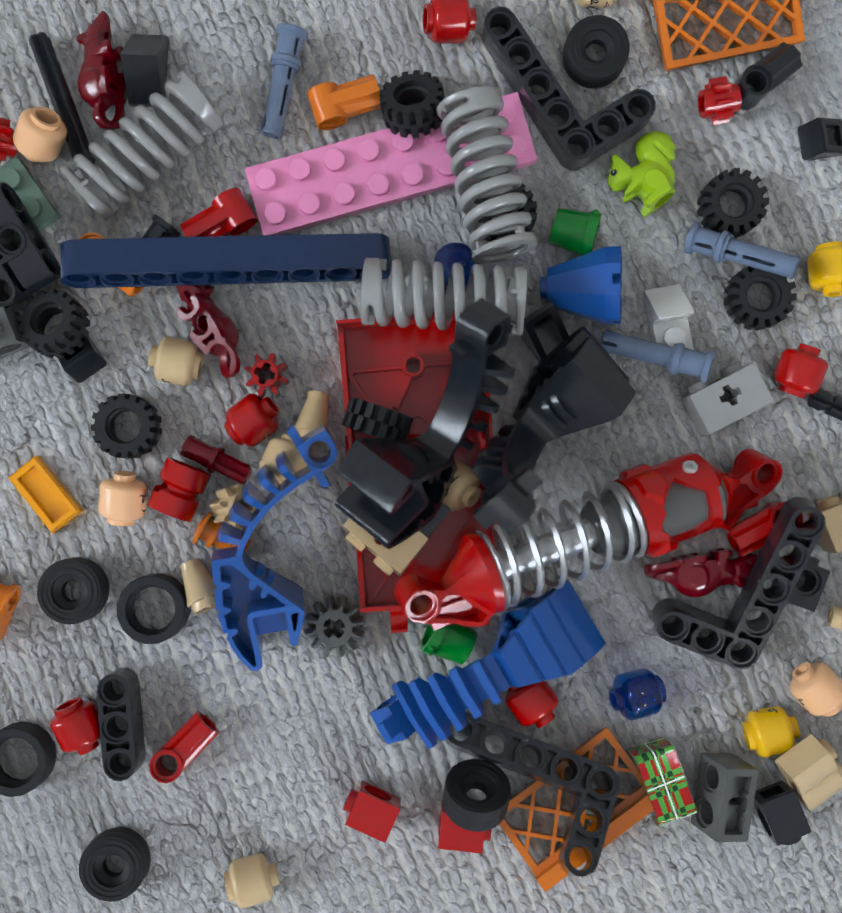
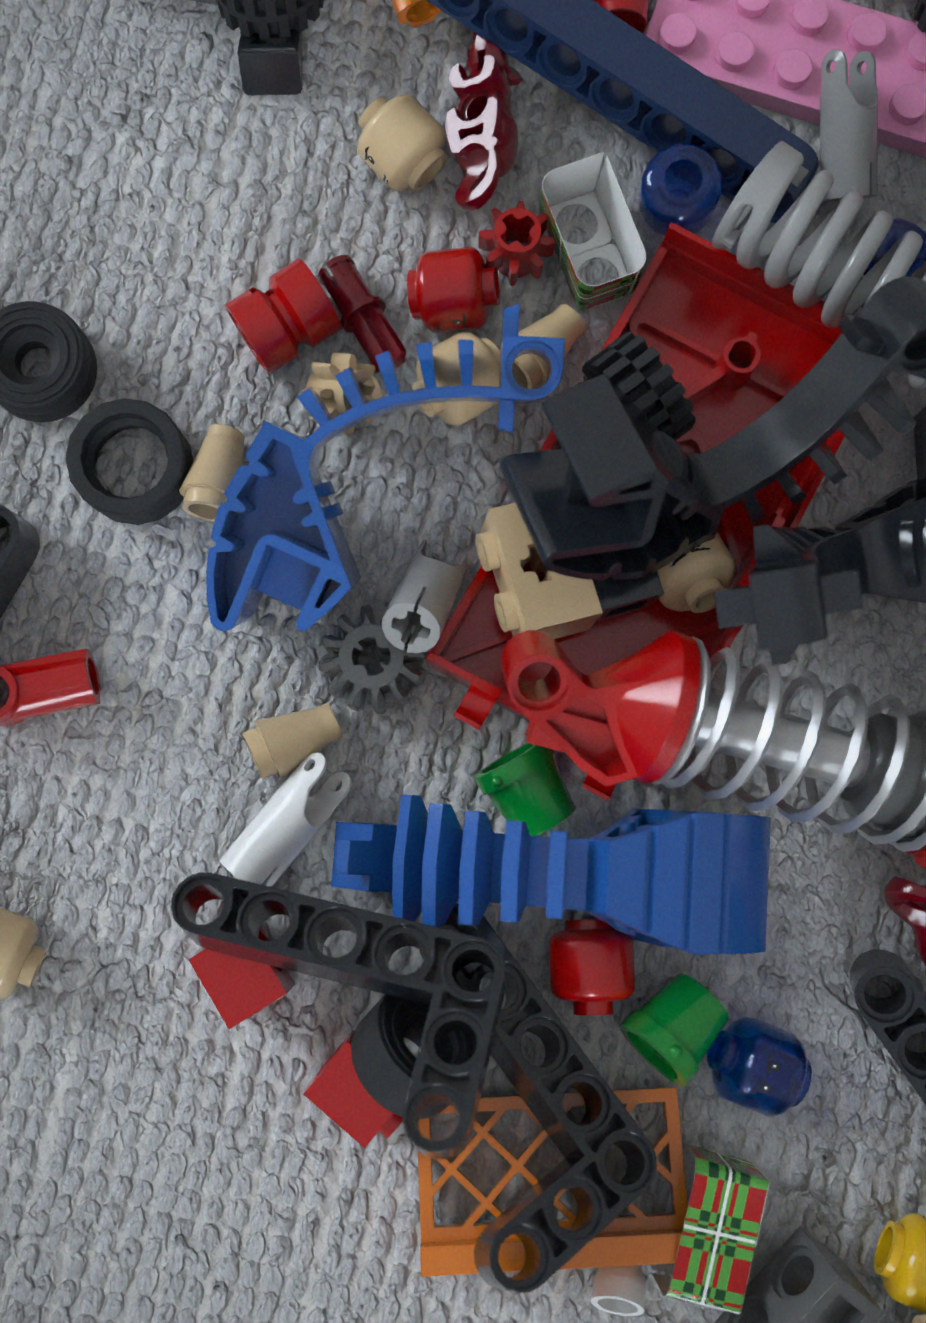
camera: 35 degrees right, 5 degrees down
(45, 494) = (92, 210): light orange tile -> none
(105, 422) = (254, 157): black tyre -> none
(122, 499) = (194, 279): light nougat head -> none
(207, 532) = (288, 412): orange pin -> none
(269, 341) = (576, 185): none -> white piece
(321, 689) = (286, 740): none -> tan cone
(329, 298) = (680, 188): none -> clear blue head
(340, 586) = (422, 601): none -> light grey piece
(346, 731) = (285, 824): none -> white piece
(392, 212) = (849, 125): none -> light grey piece
(428, 775) = (367, 968): none -> black beam
(588, 702) = (676, 1028): none -> green piece
(639, 835) = (619, 1290): none -> white hinge

